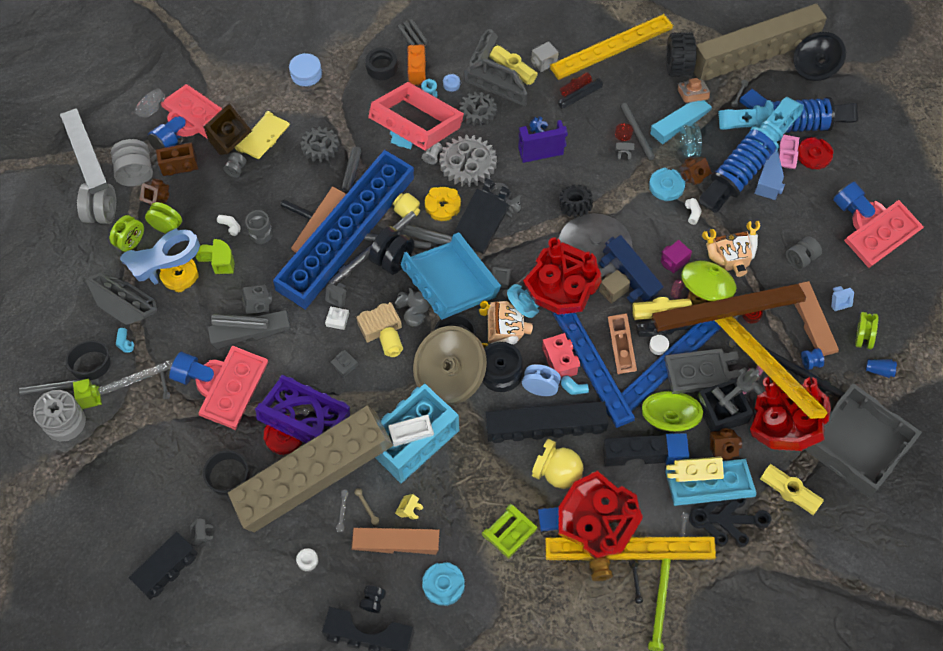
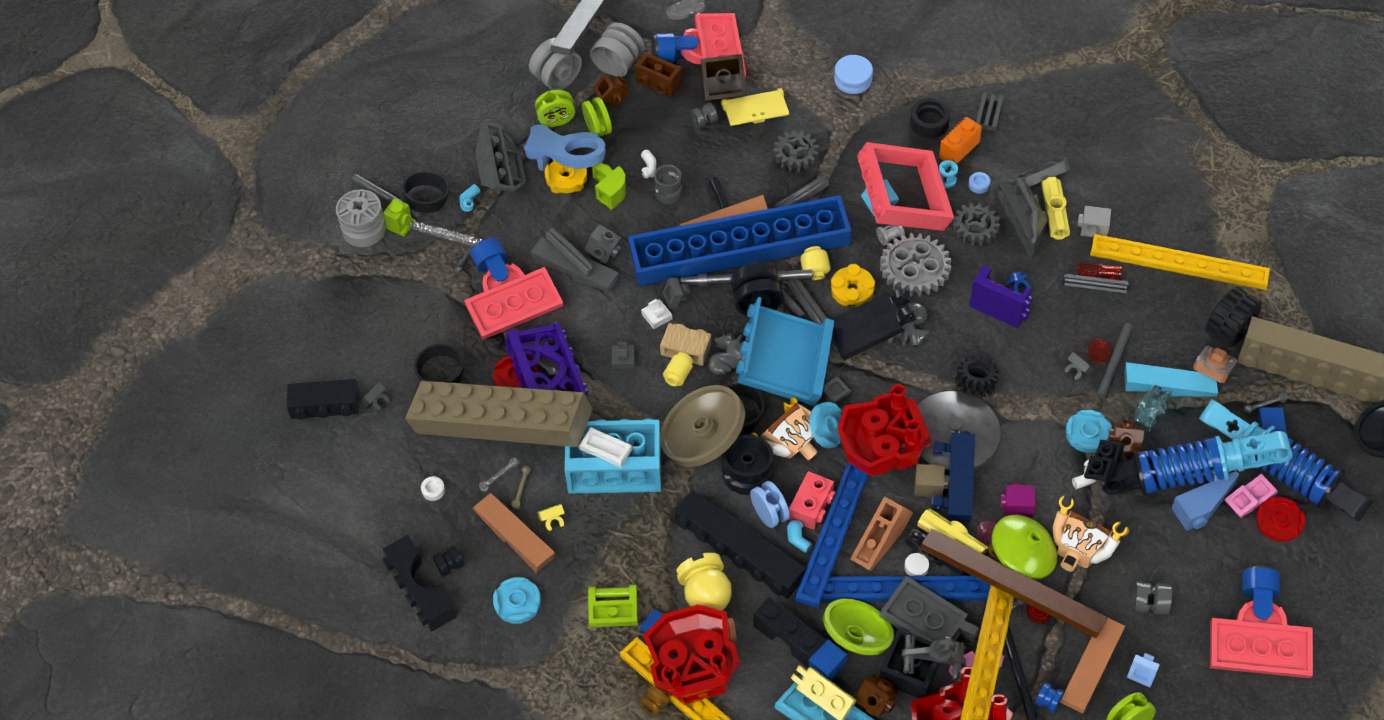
camera: 45 degrees right, 5 degrees down
(700, 193) = (1105, 460): none -> black slope

